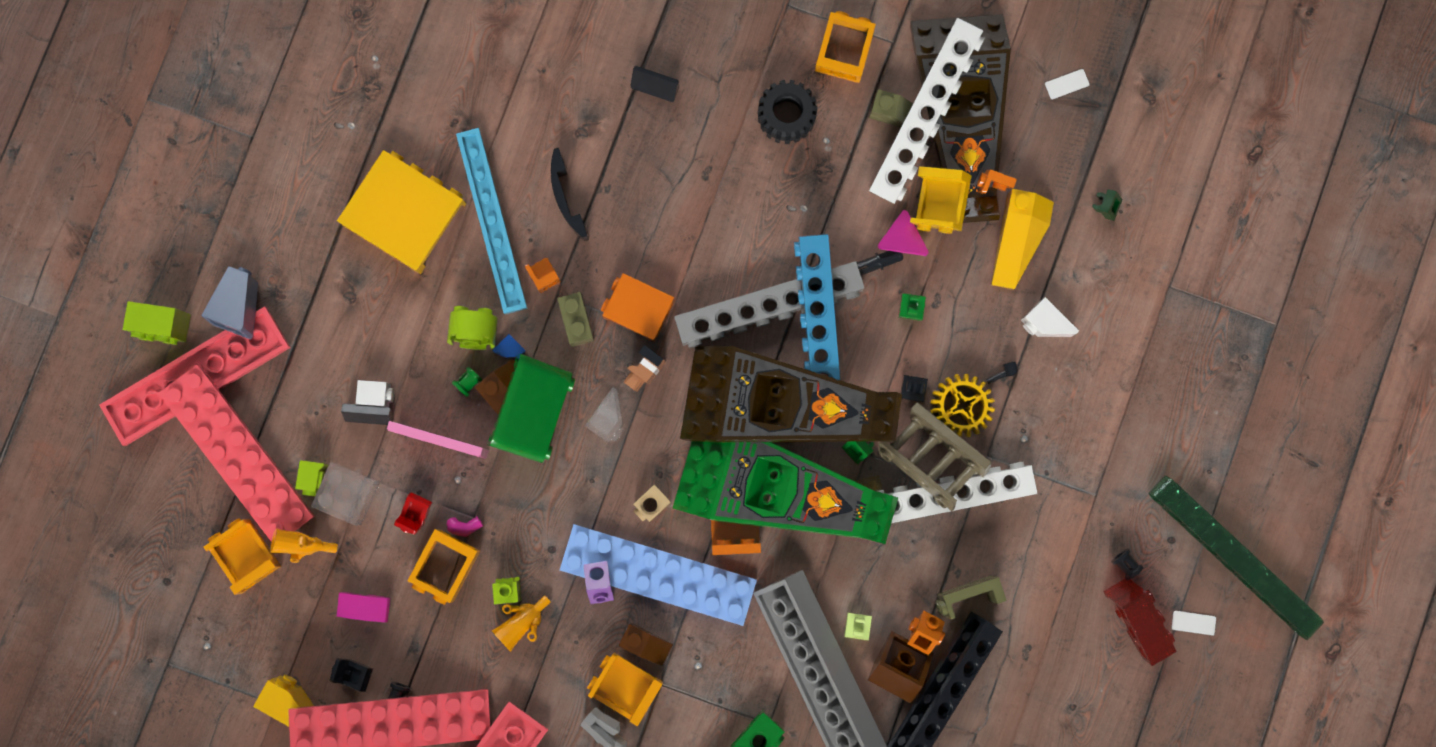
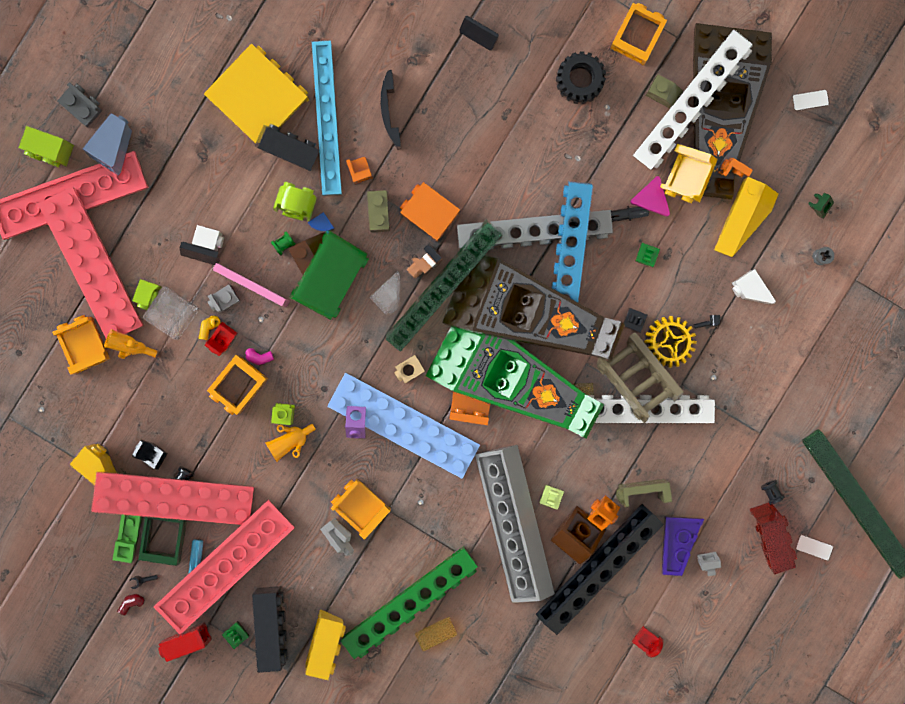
camera: 15 degrees right, 5 degrees up
(188, 264) = (79, 105): none -> dark grey bracket
(363, 607) = (168, 404): dark pink slope -> none
(393, 500) = (207, 325): none -> yellow arm
(406, 464) = (223, 299): none -> light grey bracket
(450, 263) = (287, 146): none -> black brick
(645, 644) = (383, 477): reddish brown slope -> none
(672, 393) = (443, 285): none -> clear green brick
(858, 450) = (580, 360): green tile -> none
(1025, 651) = (678, 542): none -> dark purple wing
(1068, 668) = (709, 562): none -> light grey tile
(1130, 262) = (828, 253): none -> dark grey bush

